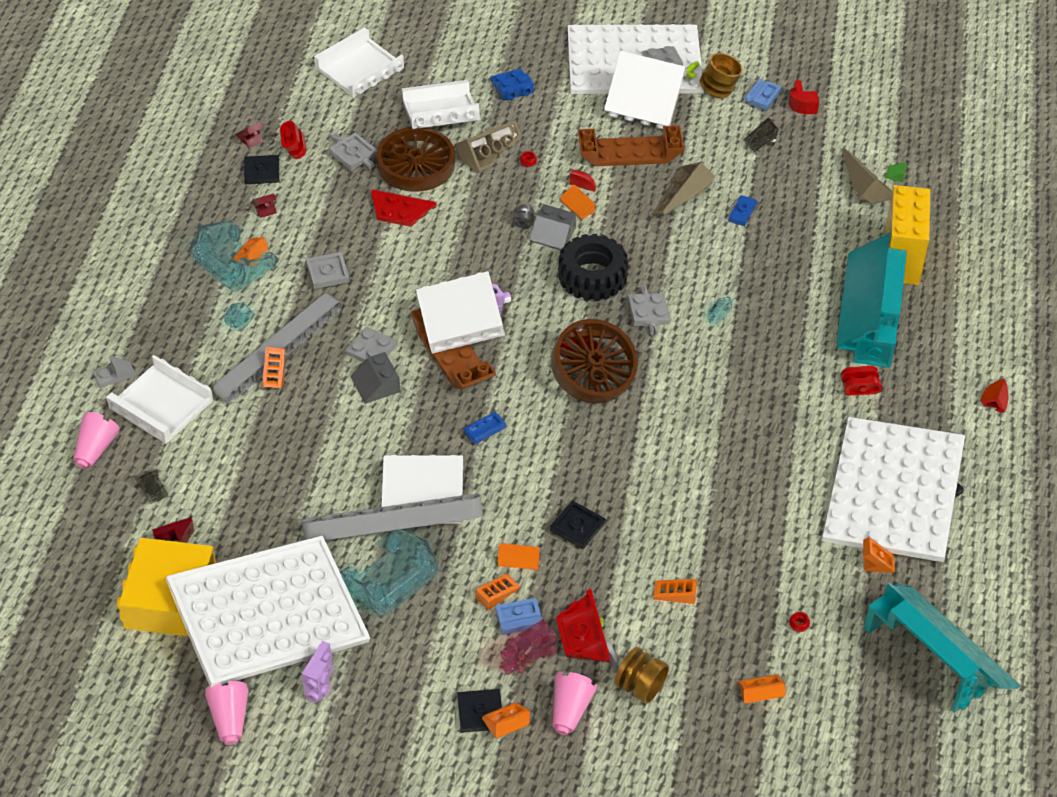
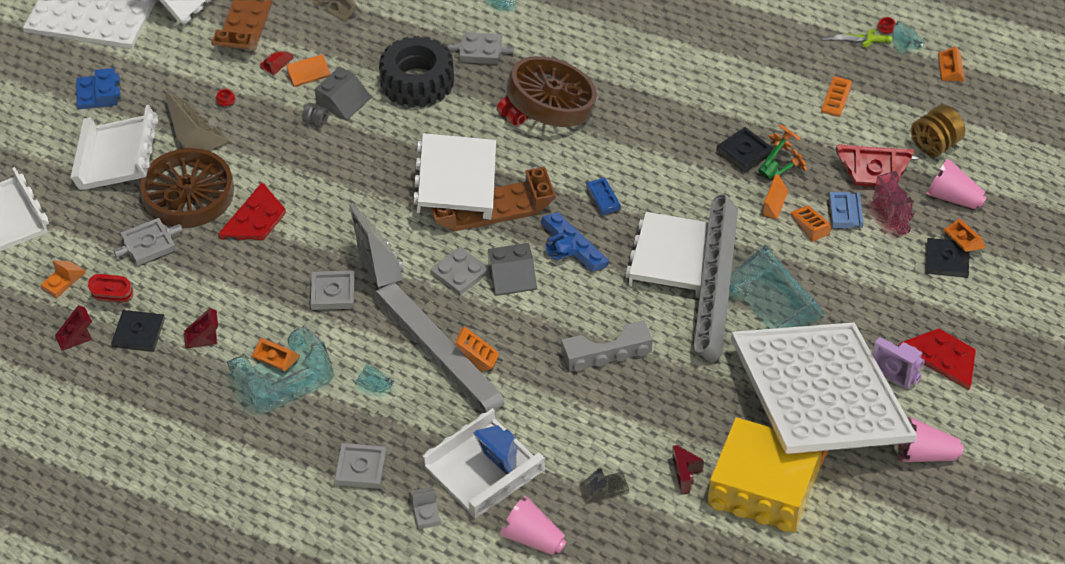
camera: 75 degrees left, 0 degrees up
(147, 325) = (360, 466): none -> light grey plate
(164, 399) = (498, 447): none -> blue slope
(307, 115) = (65, 275): none -> orange slope
(312, 475) = (583, 353): none -> light grey arch
(351, 720) = (946, 355): none -> red wing
(361, 273) = (375, 251): none -> light grey slope
(420, 414) = (569, 241): none -> blue plate
(555, 546) = (769, 167): none -> plant
(773, 596) = (861, 37): none -> piece
(787, 640) = (905, 37): none -> clear light blue brick

